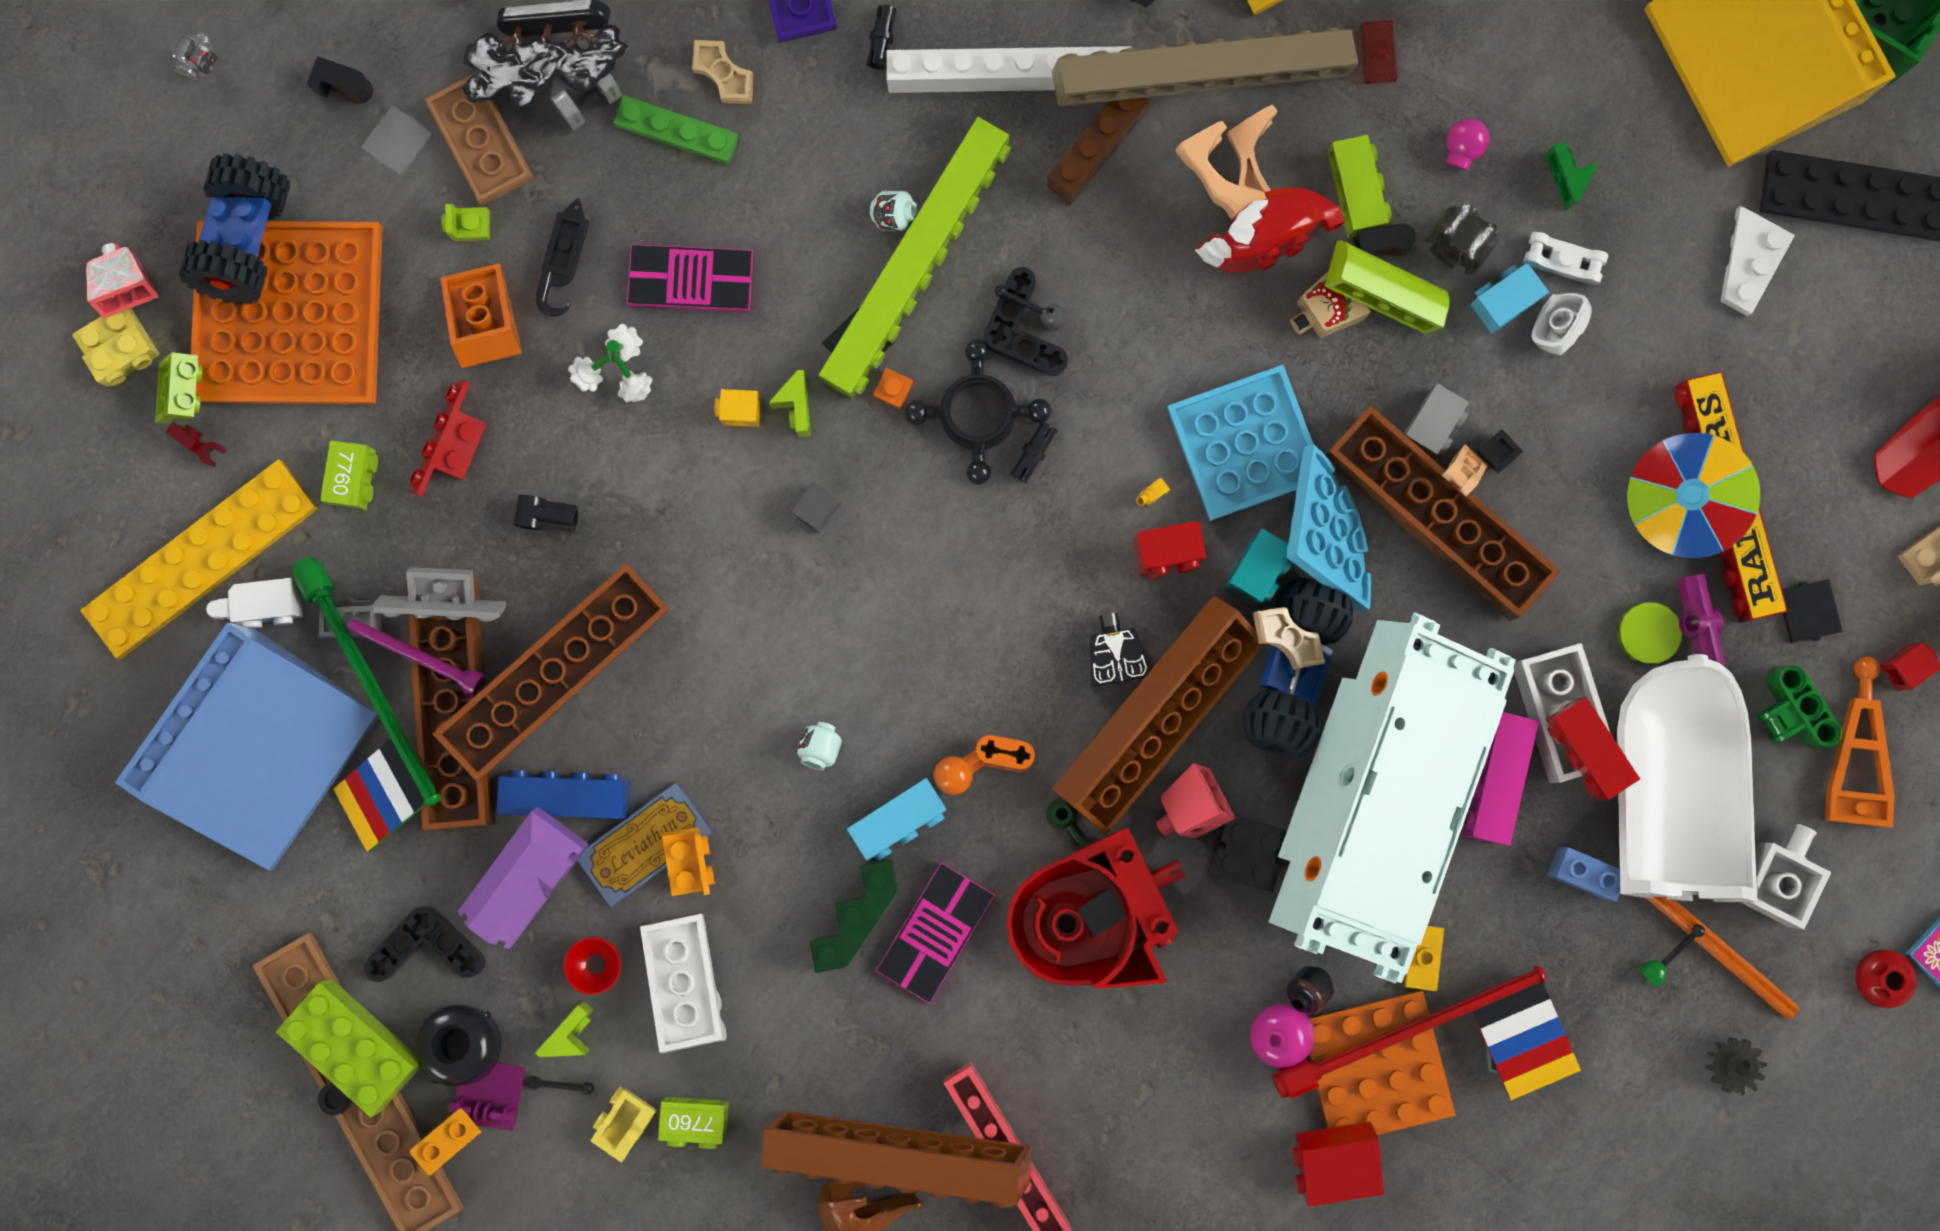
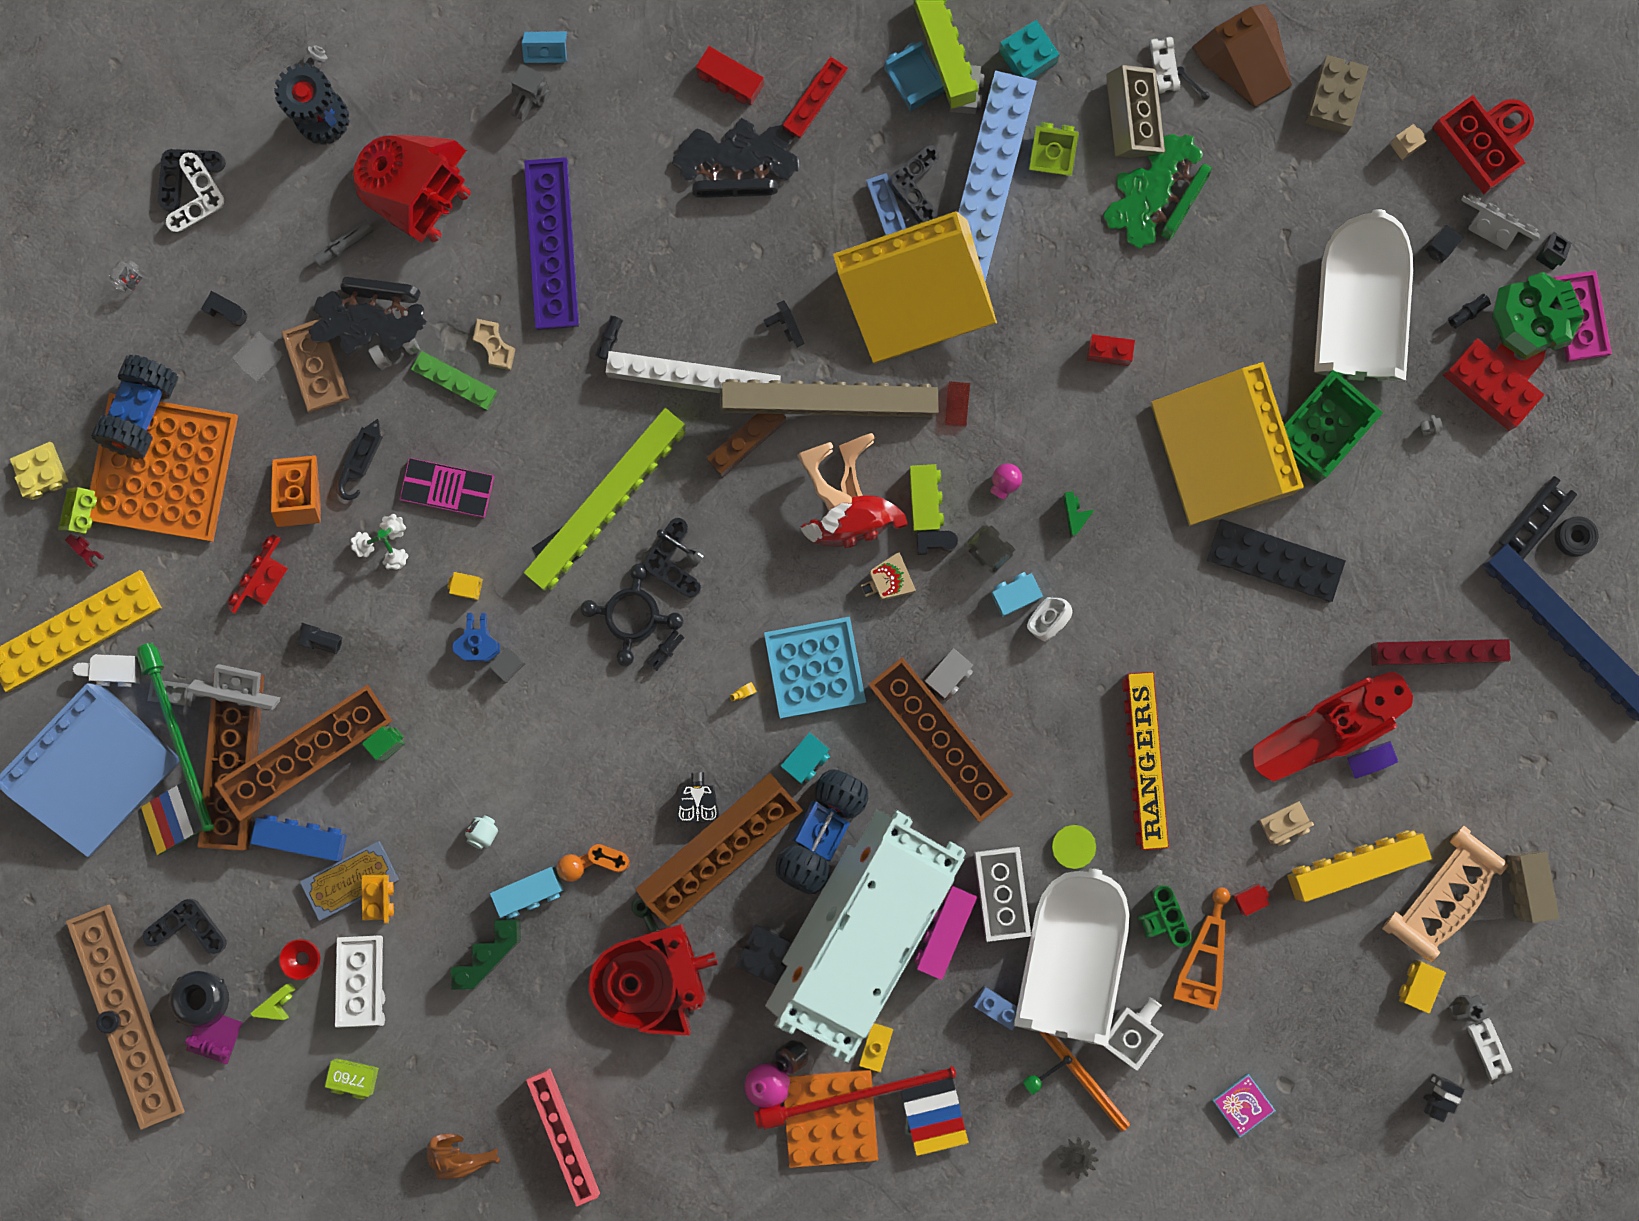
camera: 10 degrees right, 0 degrees up
(117, 281) = (47, 427): coral torso -> none
(349, 475) = (186, 589): lime brick -> none
(350, 1047) = (124, 988): lime brick -> none
(444, 1142) = (178, 1064): light orange bracket -> none
(466, 223) = (296, 424): lime bracket -> none
(470, 681) = (246, 750): magenta piece -> none
(522, 879) = (260, 892): medium lavender brick -> none
(536, 1082) = (248, 1033): black hinge -> none
(623, 1125) = (303, 1072): light yellow cylinder -> none
(662, 642) = (384, 743): none -> green brick
(768, 479) = (476, 639): none -> blue hinge
(795, 395) = (505, 581): lime slope -> none
(893, 210) = (595, 464): light aqua head -> none
(893, 388) = (575, 589): orange plate -> none
(897, 1158) = (485, 1125): dark orange brick -> none
(935, 932) = (540, 974): black tile -> none
(1101, 912) = (654, 980): black panel -> none
(1169, 549) = (746, 734): red brick -> none
(1194, 804) = (733, 915): coral torso -> none
(1279, 630) = (810, 803): tan tile -> none
(1328, 531) = (858, 740): medium azure plate -> none
(1338, 1164) = (788, 1180): red brick -> none
(1387, 288) = (930, 575): lime brick -> none
(1465, 469) = (961, 712): light nougat plate -> none
(1499, 451) = (991, 702): black plate -> none
(1565, 259) = (1062, 572): white plate -> none
(1591, 749) = (1010, 923): red brick -> none
(1693, 495) = (1118, 755): dish -> none
(1699, 619) = (1109, 844): magenta piece -> none
(1753, 259) = (1194, 595): white wing -> none
(1811, 611) = (1189, 849): black piece -> none
(1872, 975) = (1184, 1110): red piece -> none

